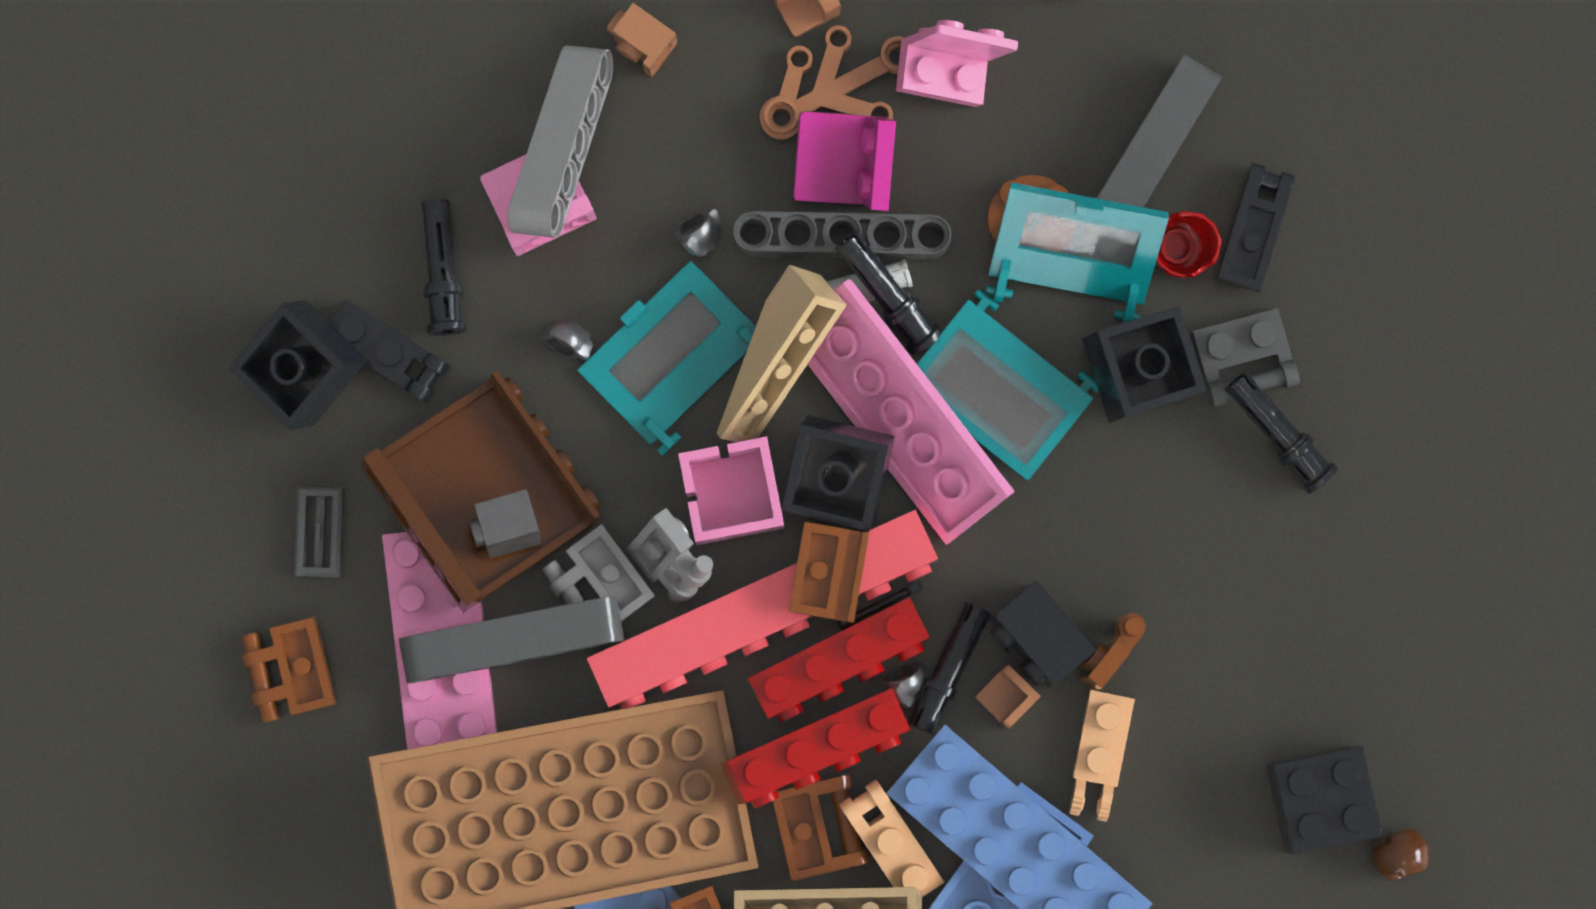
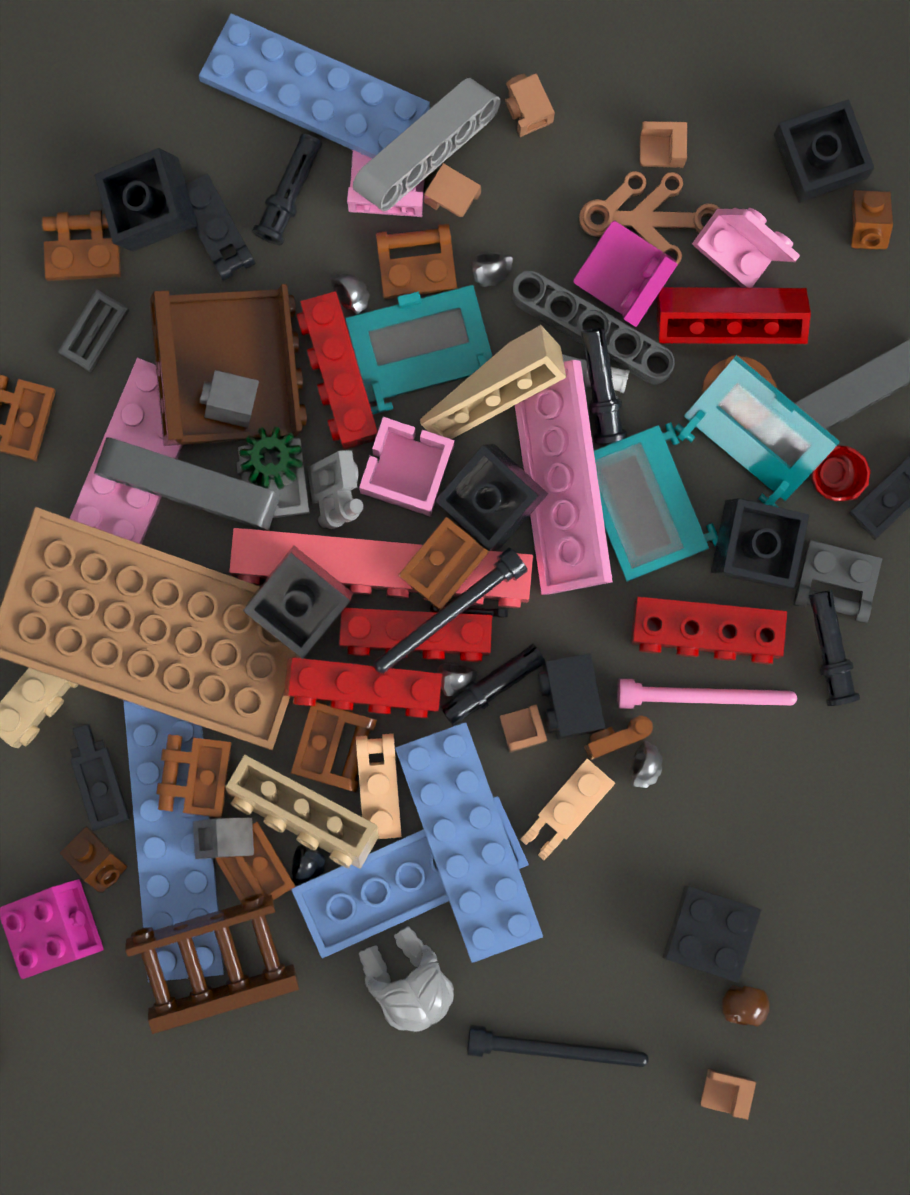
camera: 25 degrees right, 0 degrees up
(261, 463) = (80, 258): none -> dark orange plate
(403, 150) = (309, 88): none -> medium blue plate
(576, 550) = (271, 445): none -> dark green gear
(592, 419) = (339, 369): none -> red brick
(614, 175) = (451, 191): none -> nougat panel
(628, 279) = (417, 273): none -> dark orange plate
(700, 699) = (298, 602): none -> black brick
(897, 539) = (506, 568): none -> black piece
(981, 141) = (733, 315): none -> red brick
(1100, 595) = (633, 694): none -> bright pink piece
(1139, 482) = (708, 628): none -> red brick
(1156, 662) = (646, 766): none -> flat silver piece

